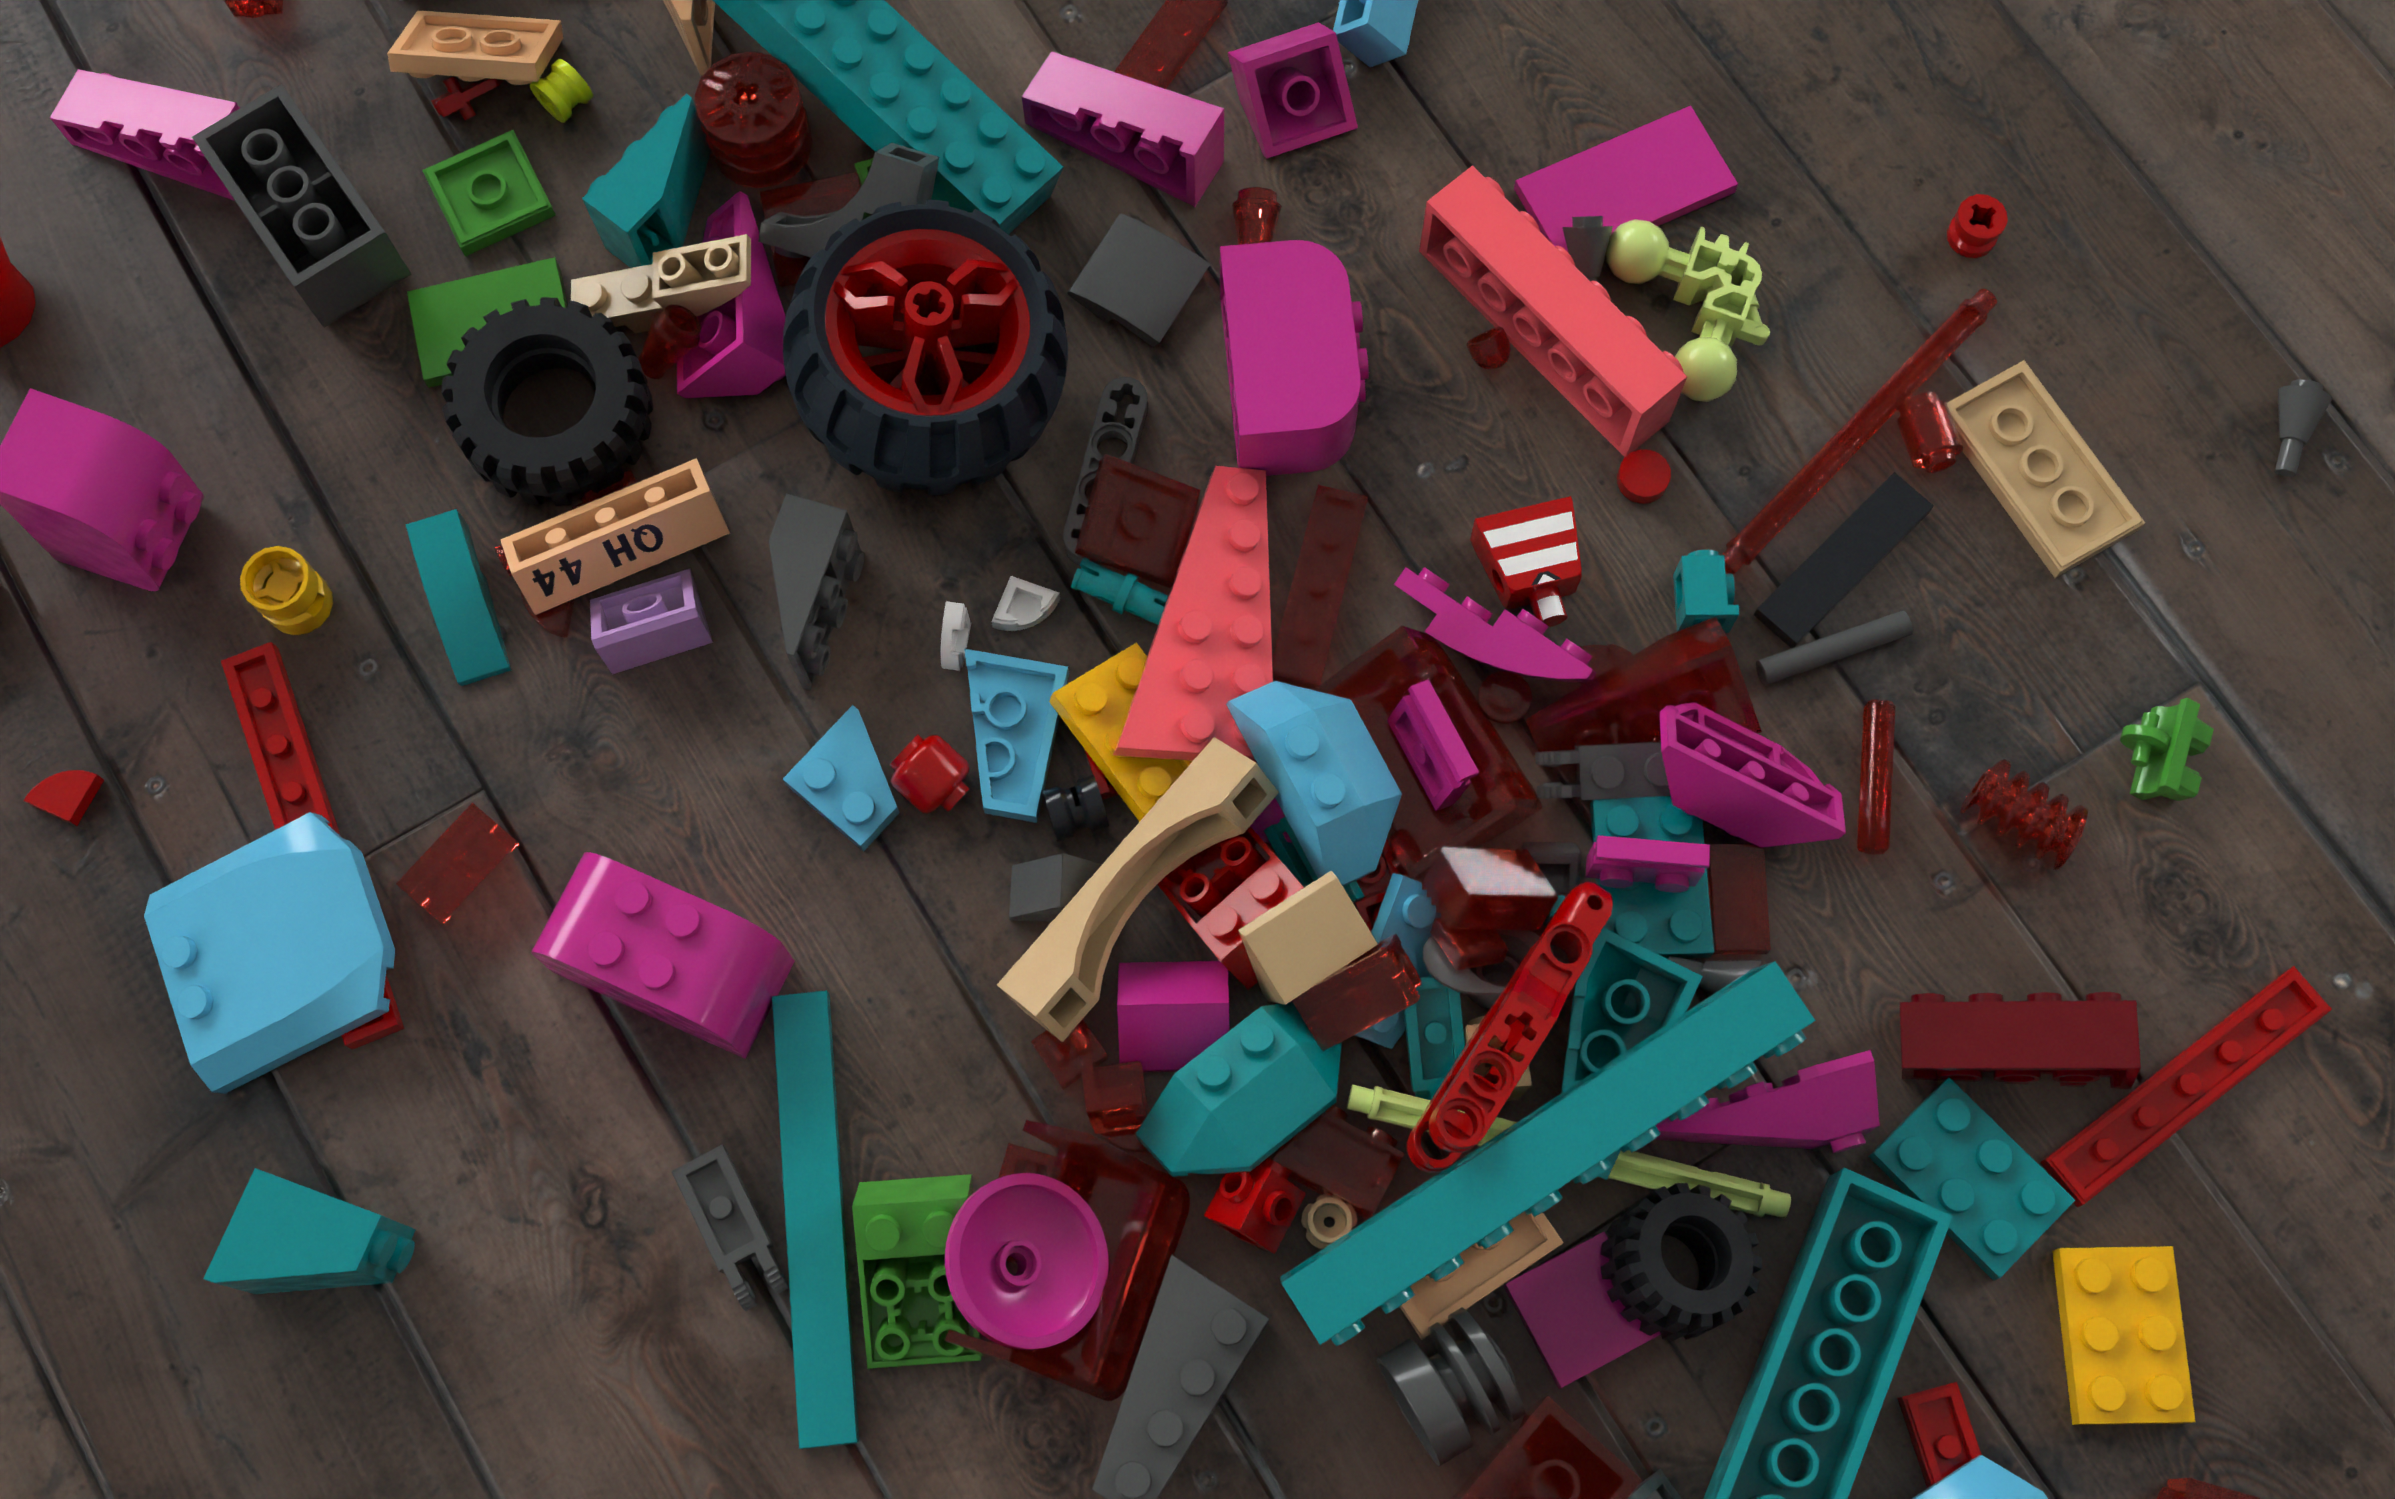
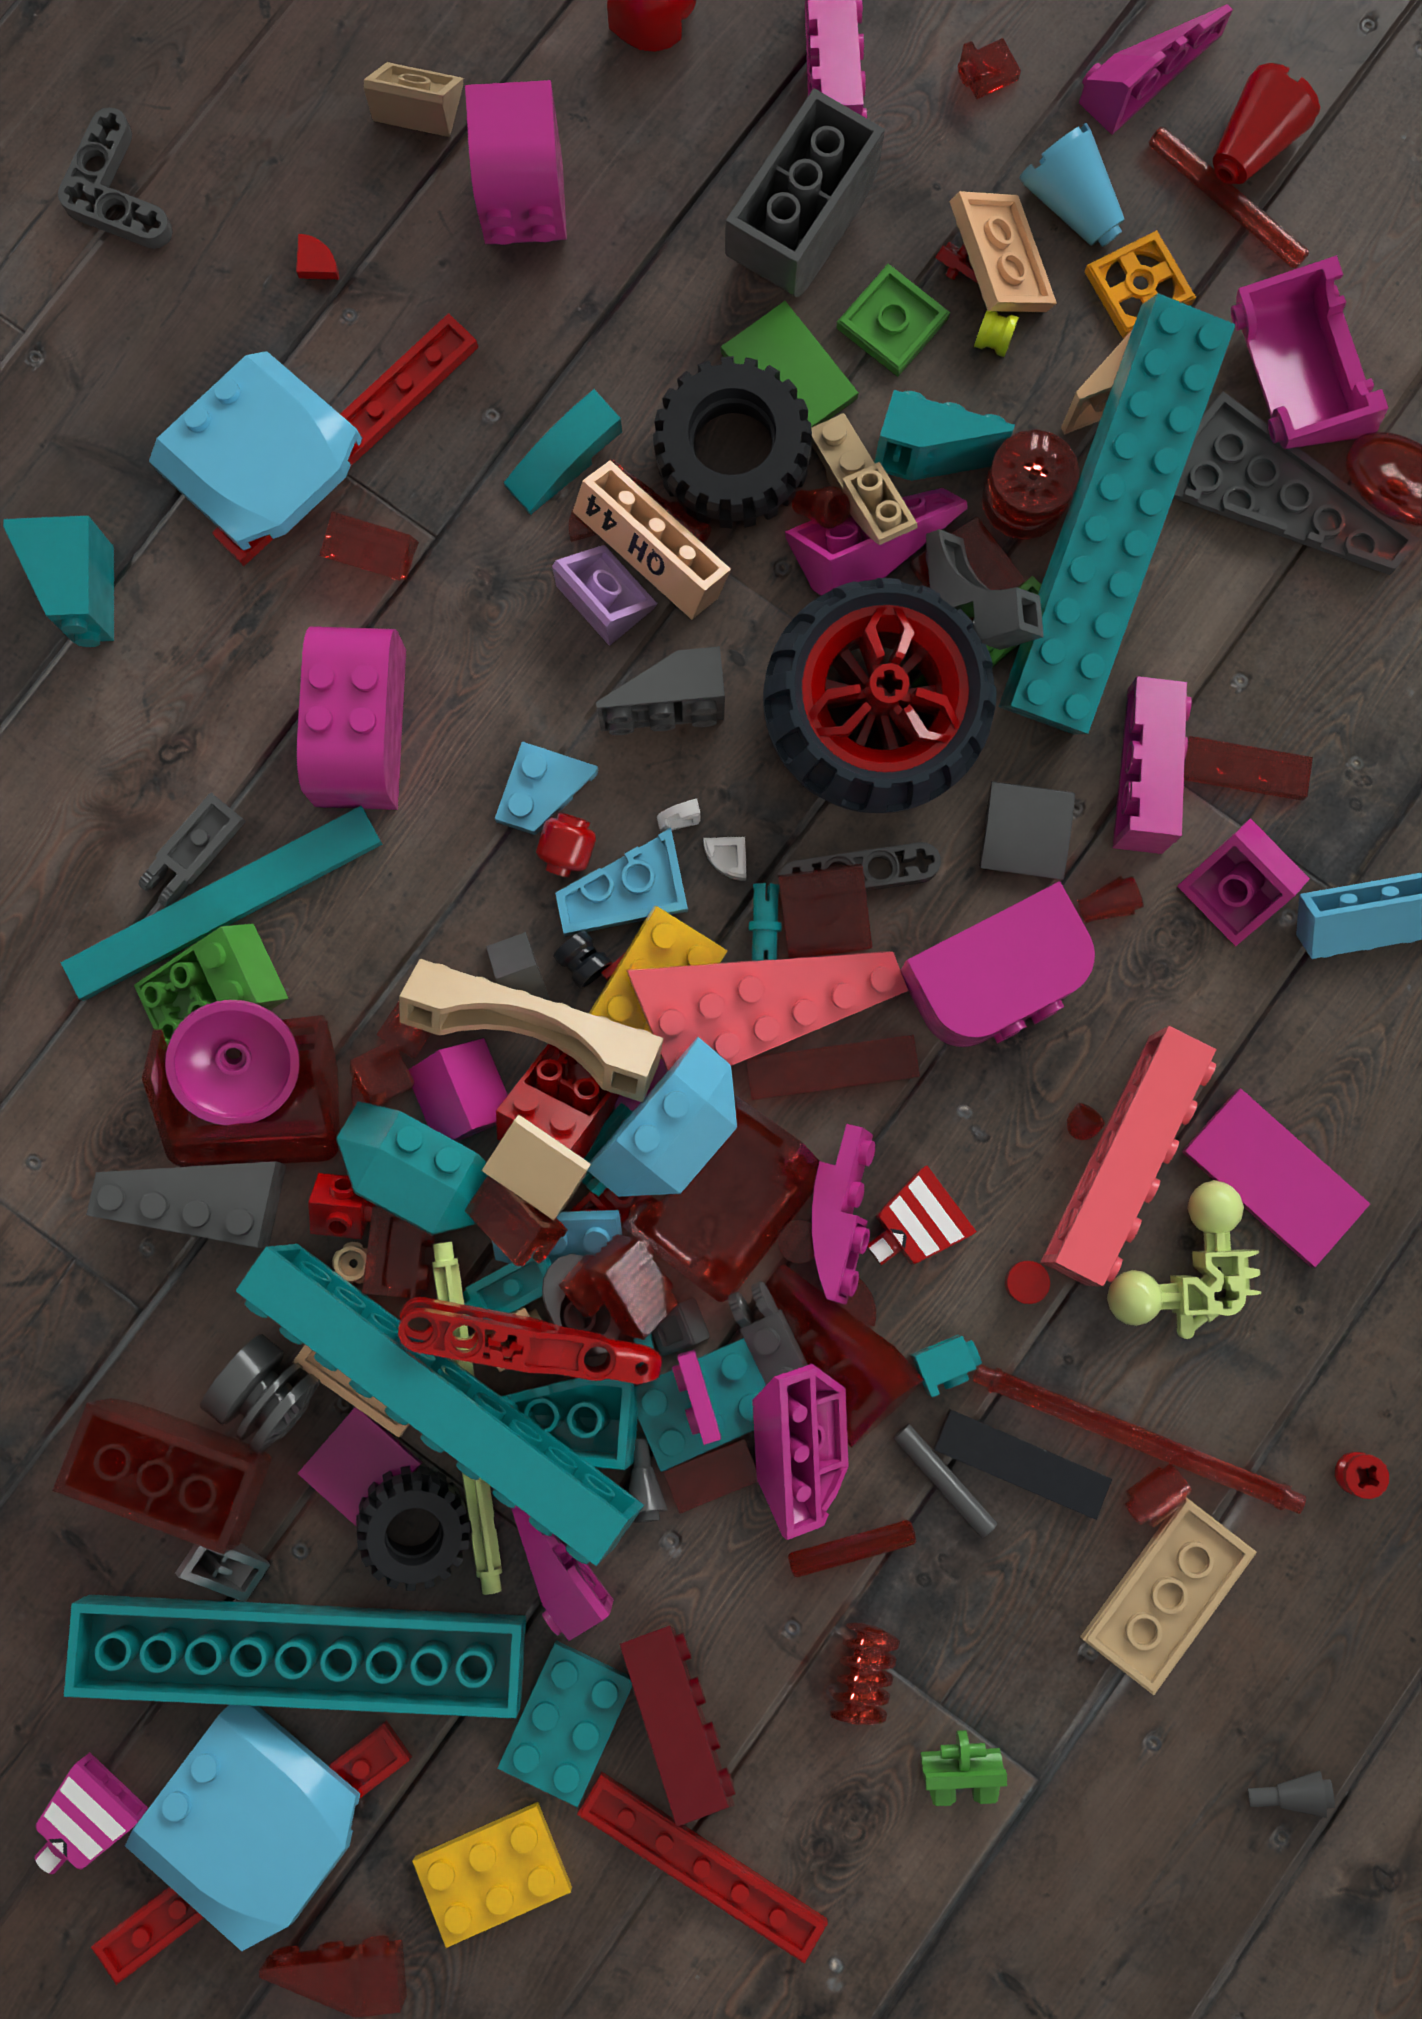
camera: 65 degrees right, 10 degrees up
(286, 590) = (516, 331): yellow wheel -> none
(1432, 745) = (730, 1201): dark pink plate -> none
(1588, 244) = (1203, 1165): dark grey cone -> none

